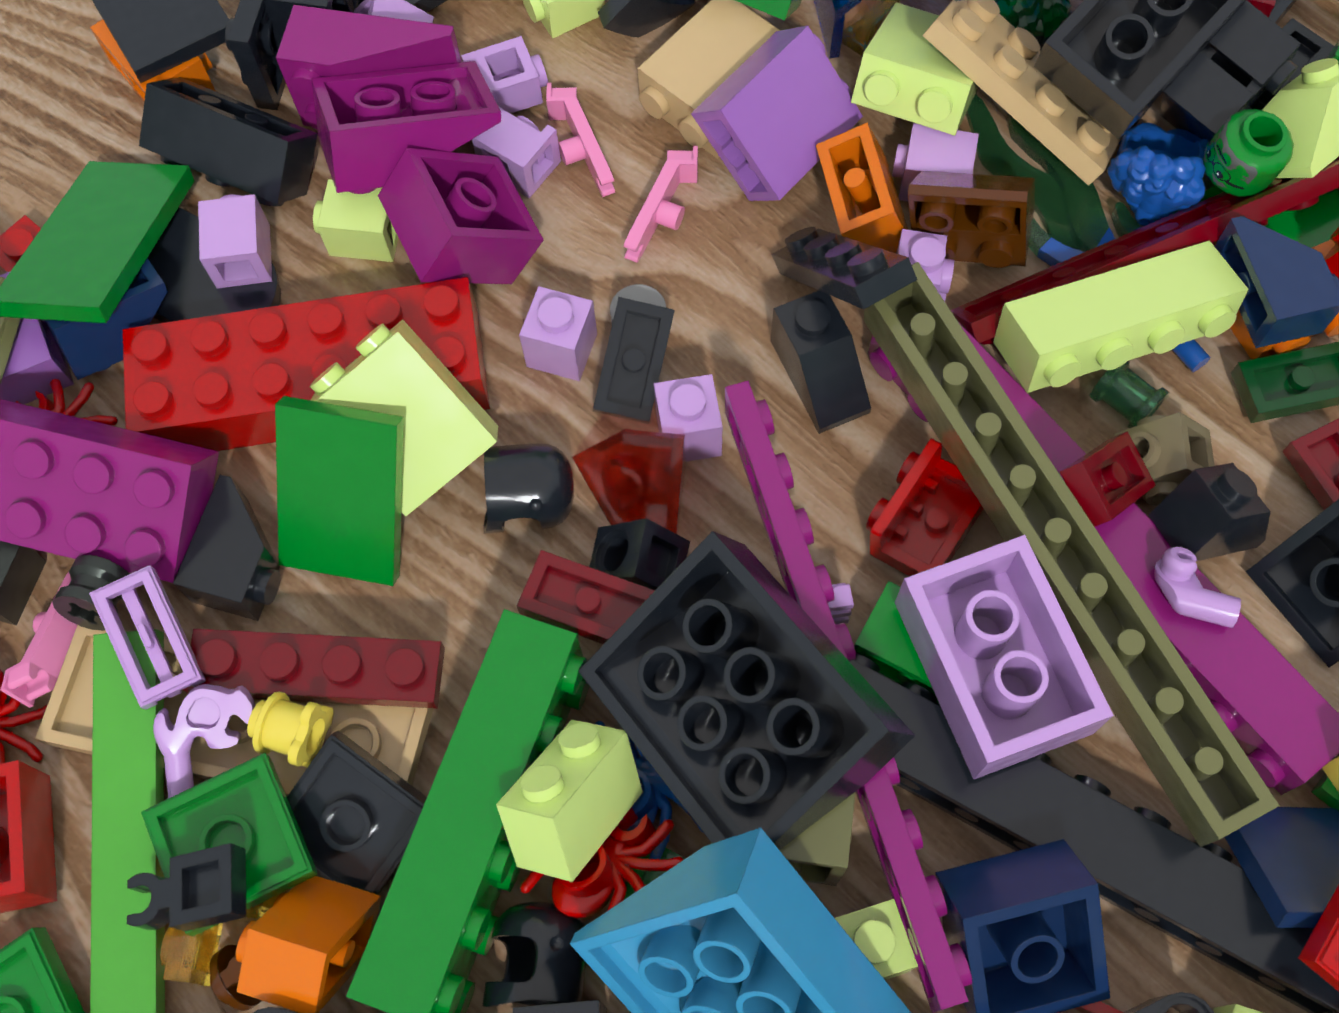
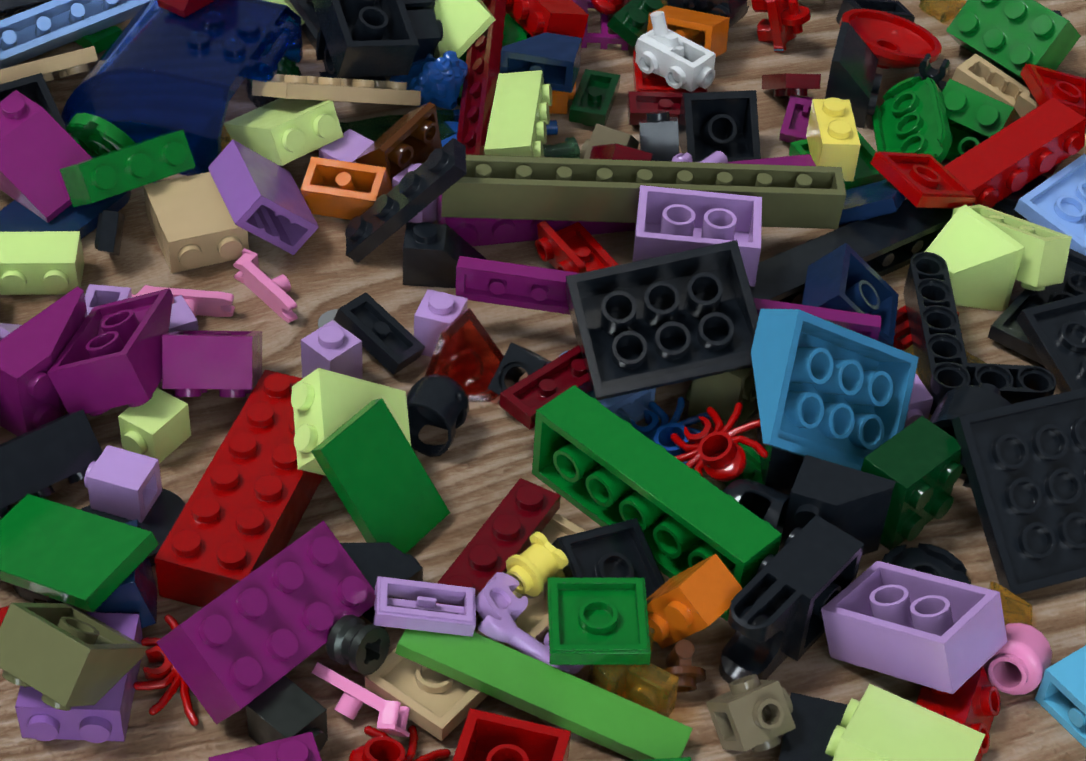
camera: 70 degrees left, 25 degrees down
(201, 890) = (631, 618): black plate -> none
(570, 799) = (678, 427): yellowish green brick -> none
(1248, 152) = (462, 31): green head -> none

